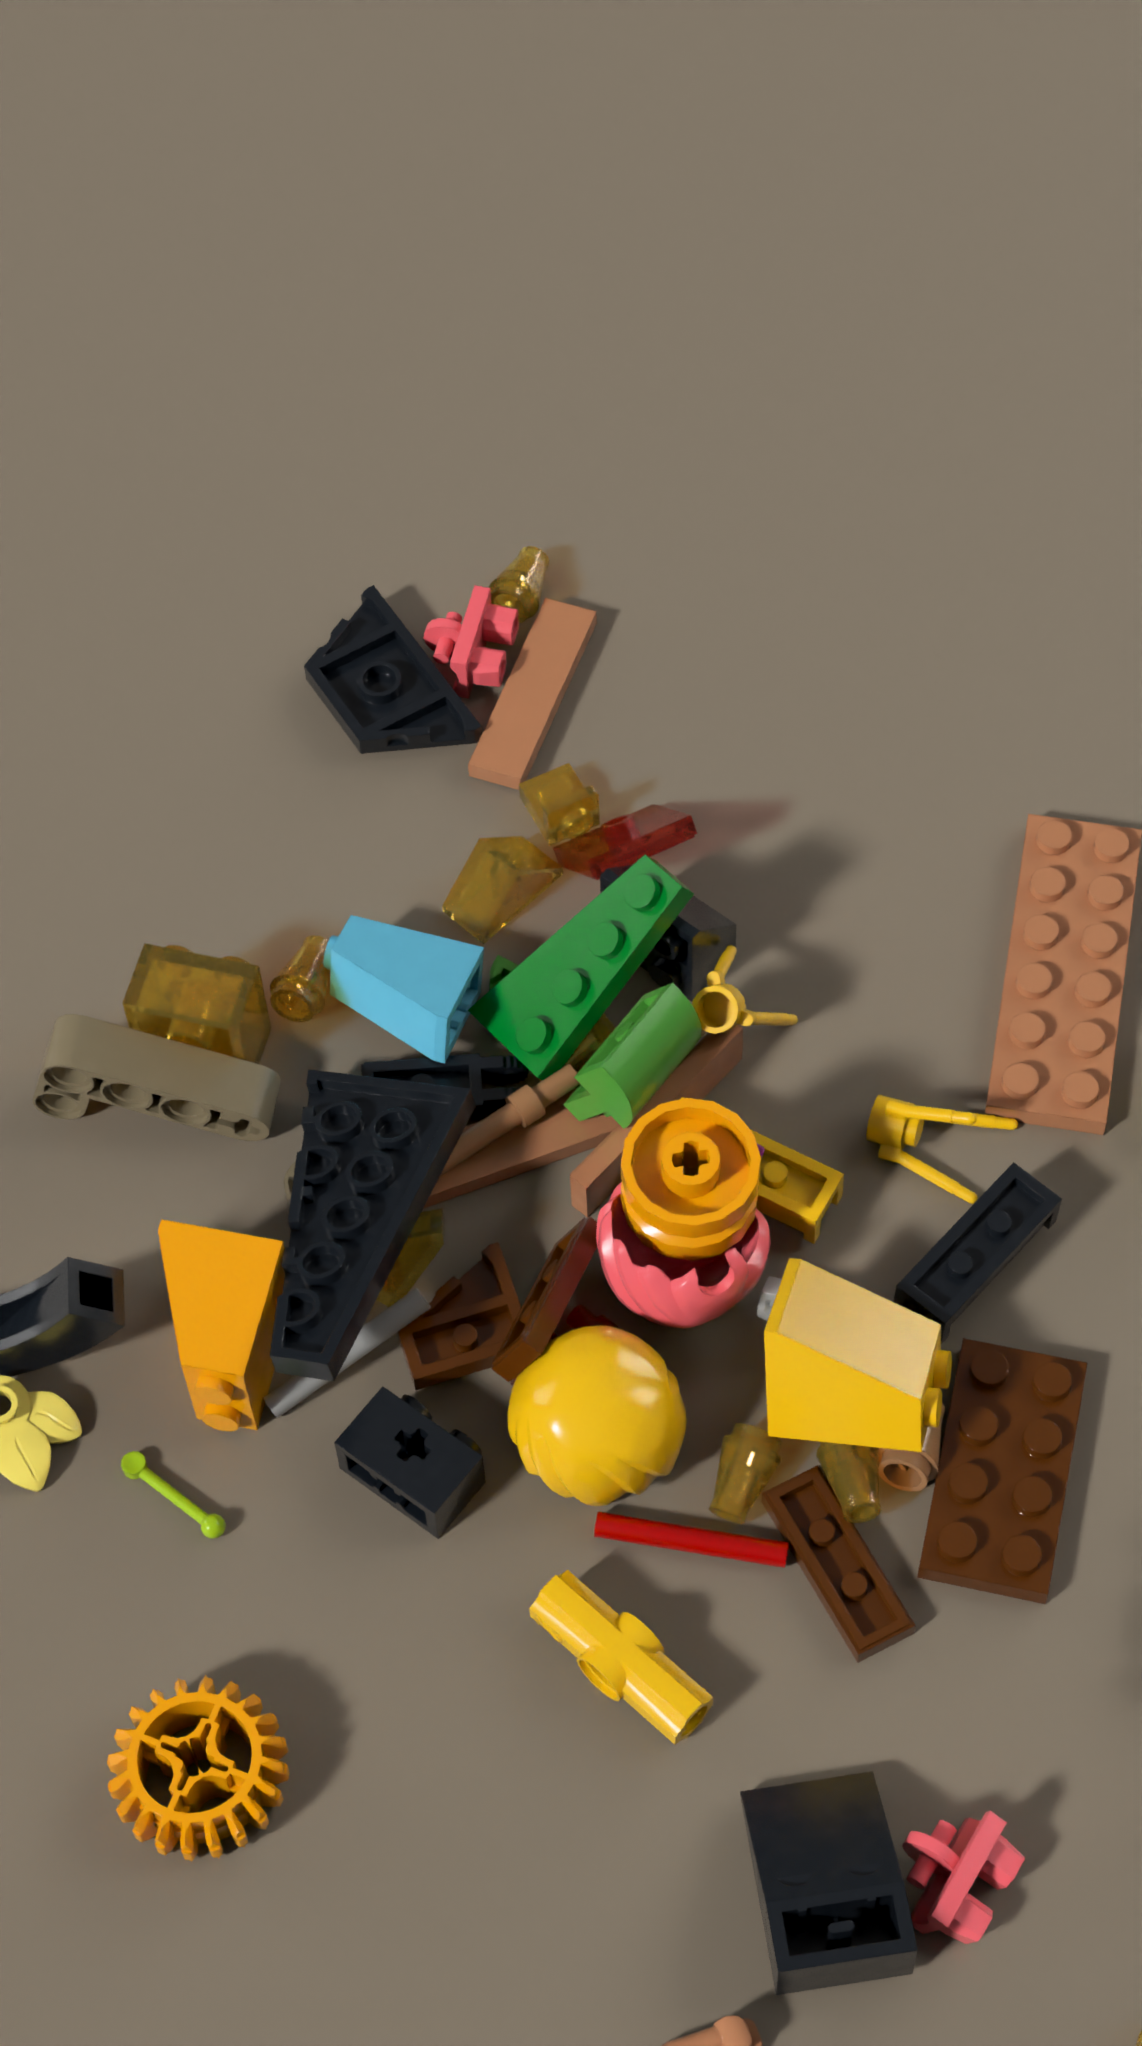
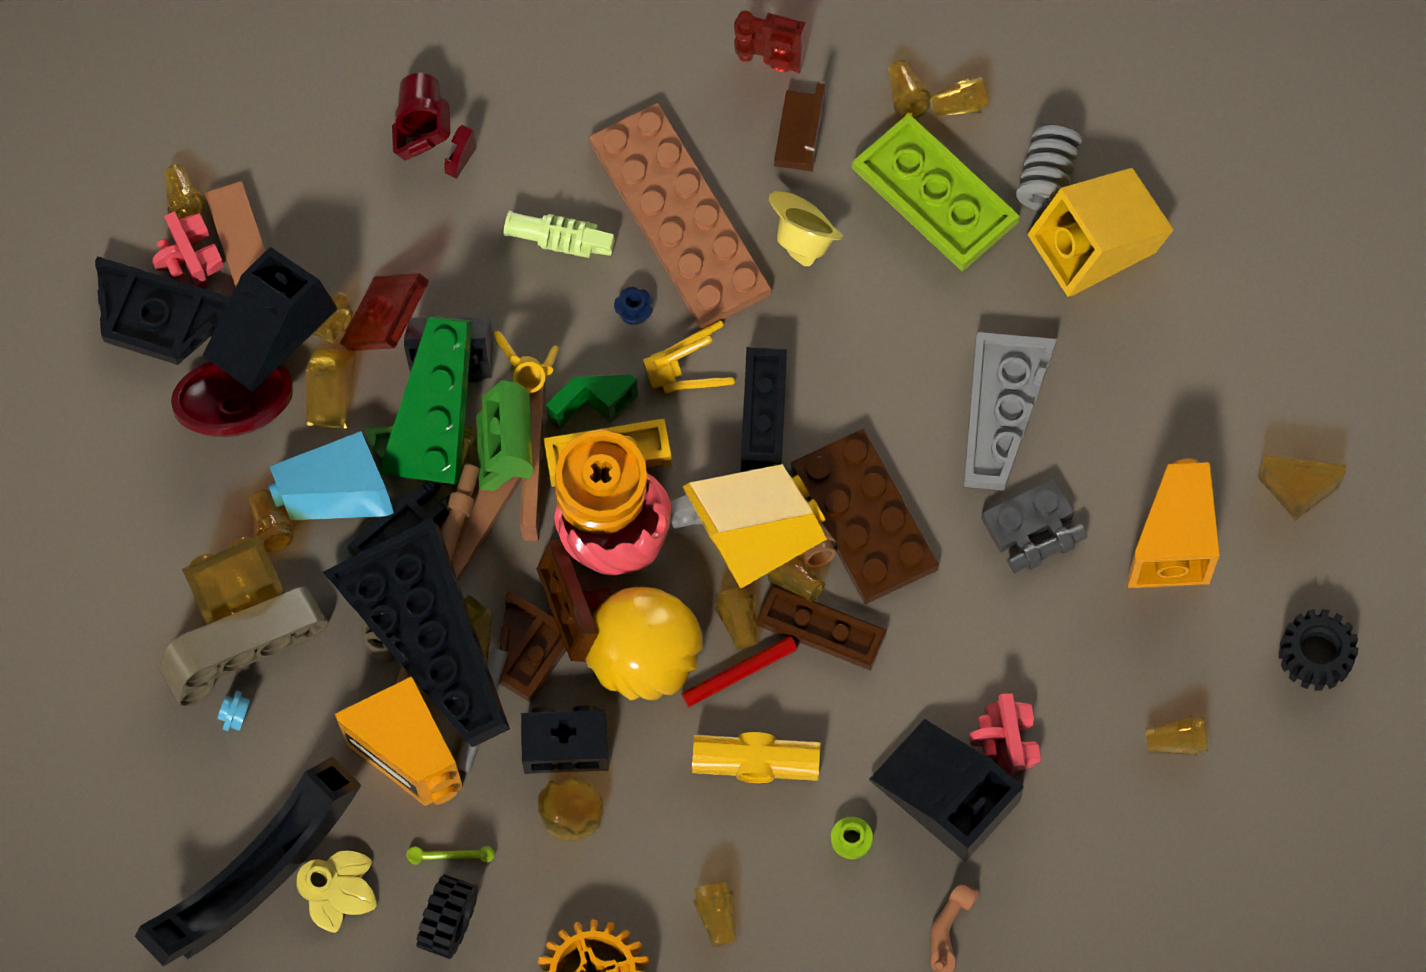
camera: 40 degrees left, 10 degrees up
(82, 1152) = (233, 711): none -> medium azure plate
(92, 1556) = (446, 916): none -> black tyre
(346, 1544) = (570, 809): none -> clear yellow hair
(379, 816) = (222, 407): none -> dark red dish
(412, 1806) = (716, 910): none -> clear yellow cone
(486, 758) = (267, 319): none -> black slope
(656, 1868) = (851, 850): none -> lime plate
(807, 1105) = (604, 393): none -> green slope
(848, 665) = (420, 115): none -> dark red piece
(866, 737) = (465, 148): none -> dark red tile
(903, 896) = (560, 234): none -> yellowish green hinge
(922, 1045) = (637, 314): none -> dark blue plate

